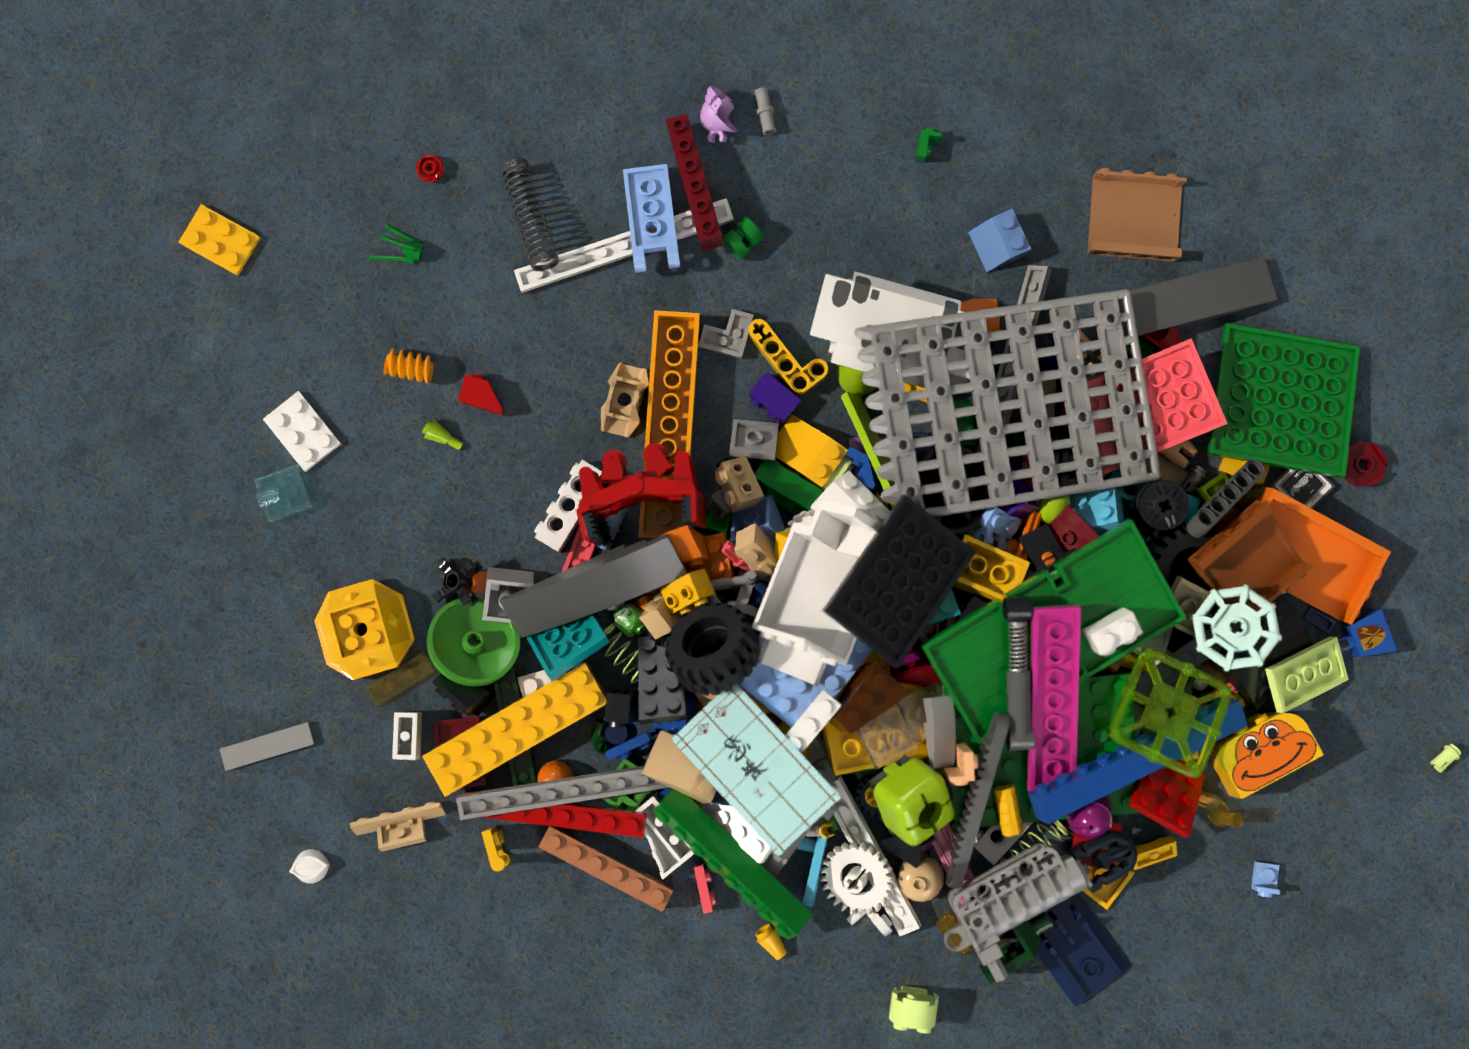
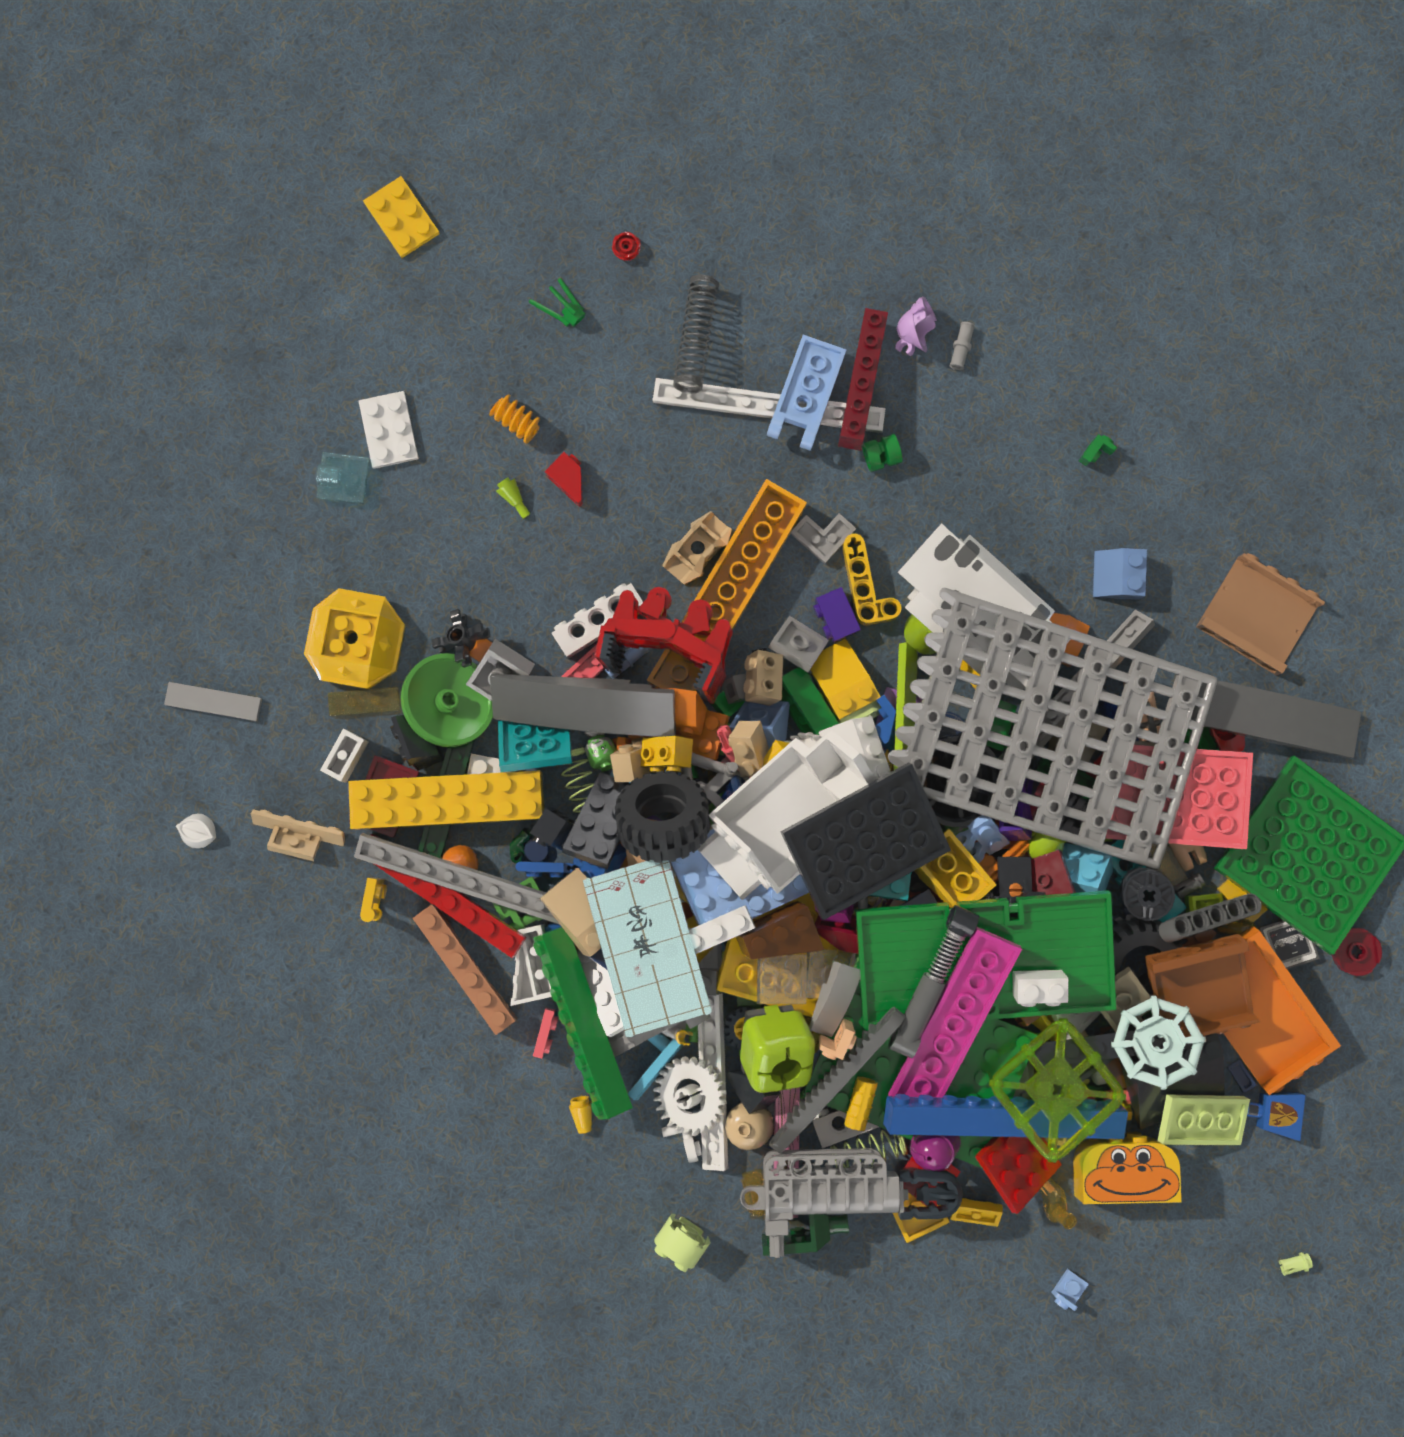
camera: 25 degrees right, 0 degrees up
(1079, 950) = (861, 1267): dark blue hinge -> none

